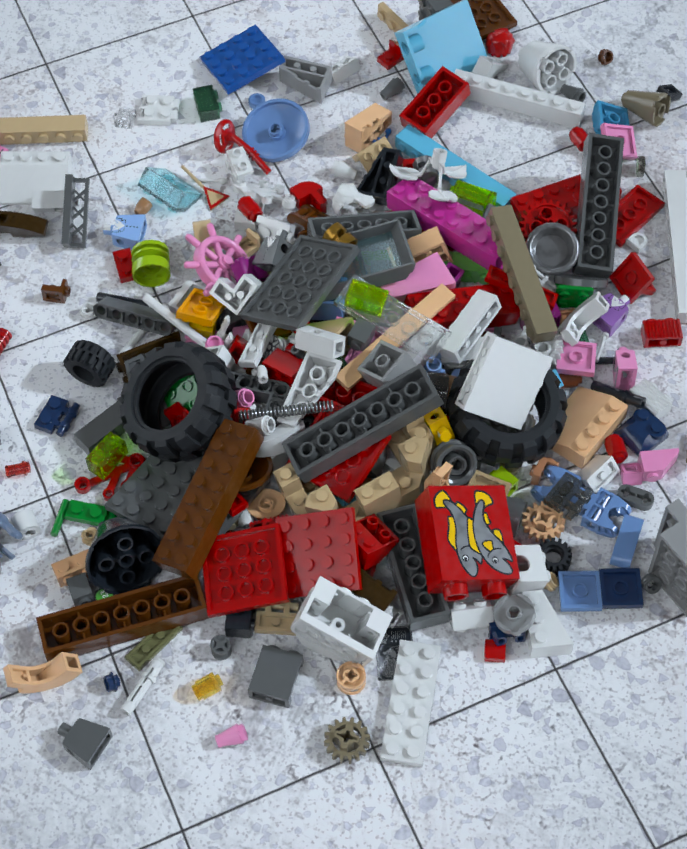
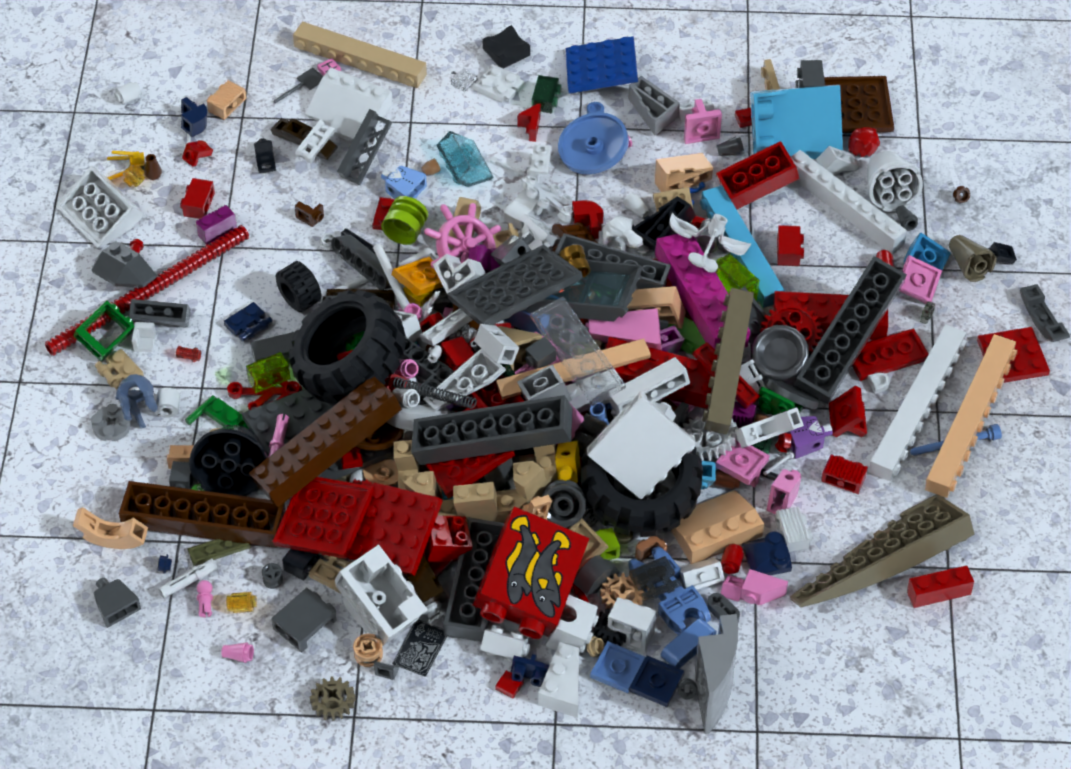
camera: 25 degrees right, 5 degrees down
(27, 223) = (315, 141): none -> white plate
(147, 75) = (506, 47): none -> black brick
(159, 521) = (279, 434): none -> bright pink pin
(169, 698) = (204, 597): none -> bright pink pin
(206, 130) = (530, 120): none -> red slope
(213, 197) = (501, 183): tan piece -> none
(229, 137) = (547, 133): red dish -> none
(249, 208) = (521, 204): red brick -> none
(360, 77) = (702, 124): none -> bright pink bracket
(366, 298) = (558, 321): clear neon green brick -> none
(377, 689) = (385, 670): none -> dark grey slope
(410, 703) = (408, 694): white plate -> none
(493, 154) = (789, 245): none -> red brick
(516, 625) = (542, 664): light grey plate -> none
(575, 544) = (634, 621): none -> white brick
(597, 324) = (784, 442): none -> red bar
(624, 396) = (767, 515): black pin -> none

